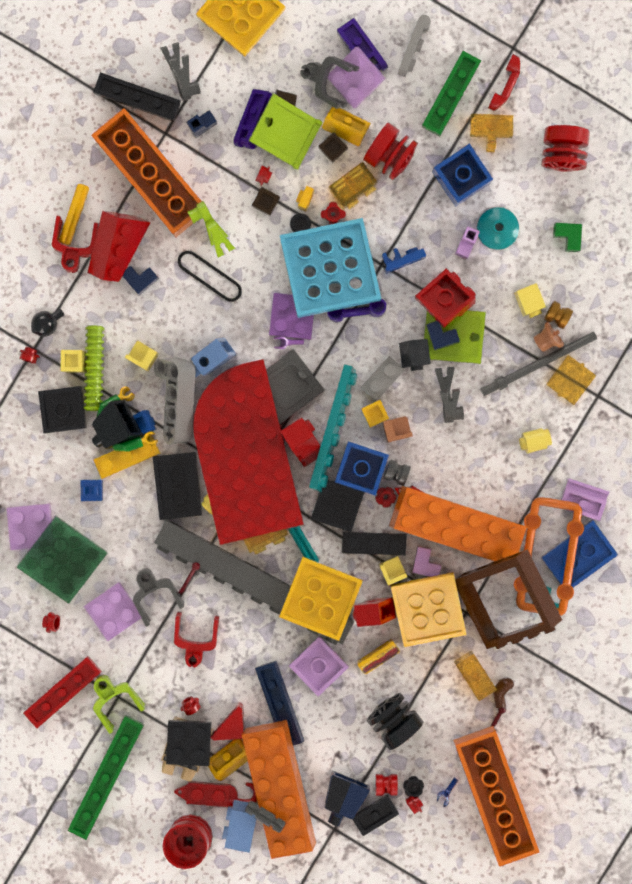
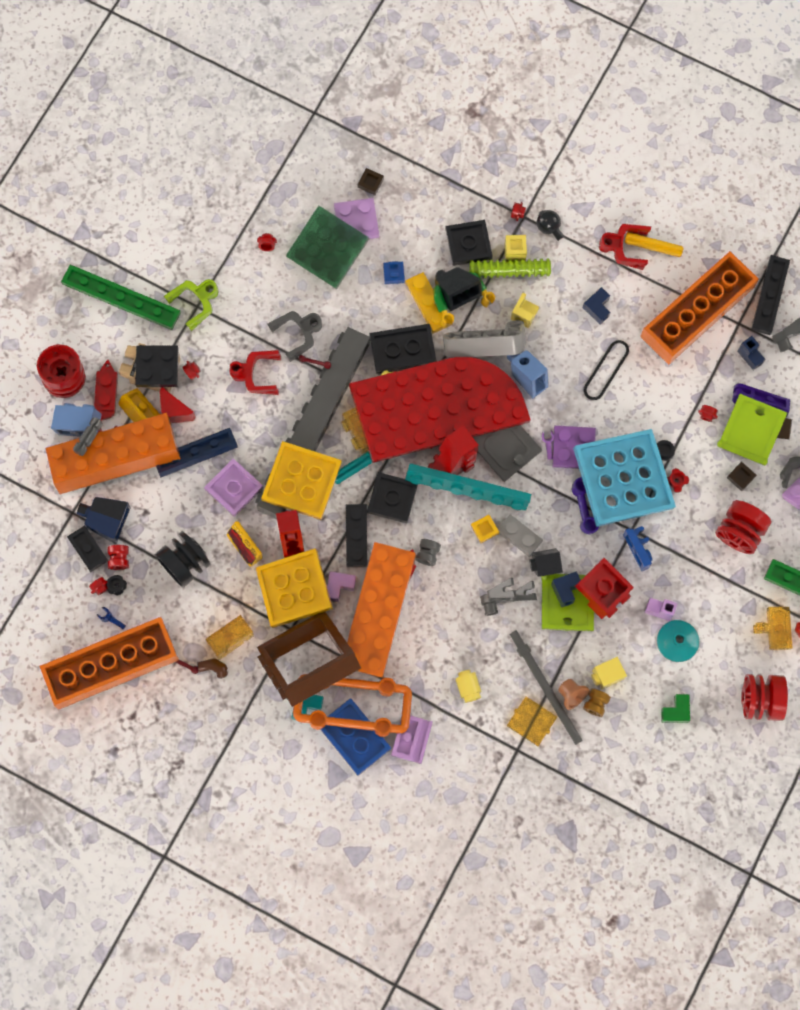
camera: 80 degrees right, 15 degrees down
(62, 692) = (201, 254): red plate -> none
(113, 611) = (279, 296): lavender plate -> none
(115, 244) = (629, 279): red wedge -> none
(145, 421) = (462, 314): blue tile -> none
(215, 232) = (654, 362): lime piece -> none
(266, 201) = (683, 416): dark brown plate -> none
(304, 198) = (689, 452): yellow plate -> none
(346, 125) = (764, 488): yellow slope -> none
(353, 186) = (705, 496): clear yellow brick -> none
(361, 468) = (430, 516): blue brick -> none
(380, 496) = (403, 538): red plate -> none
(393, 570) = (330, 552): light yellow panel -> none
(397, 429) = (470, 550): nougat panel -> none
(462, 175) = (727, 598): blue brick -> none

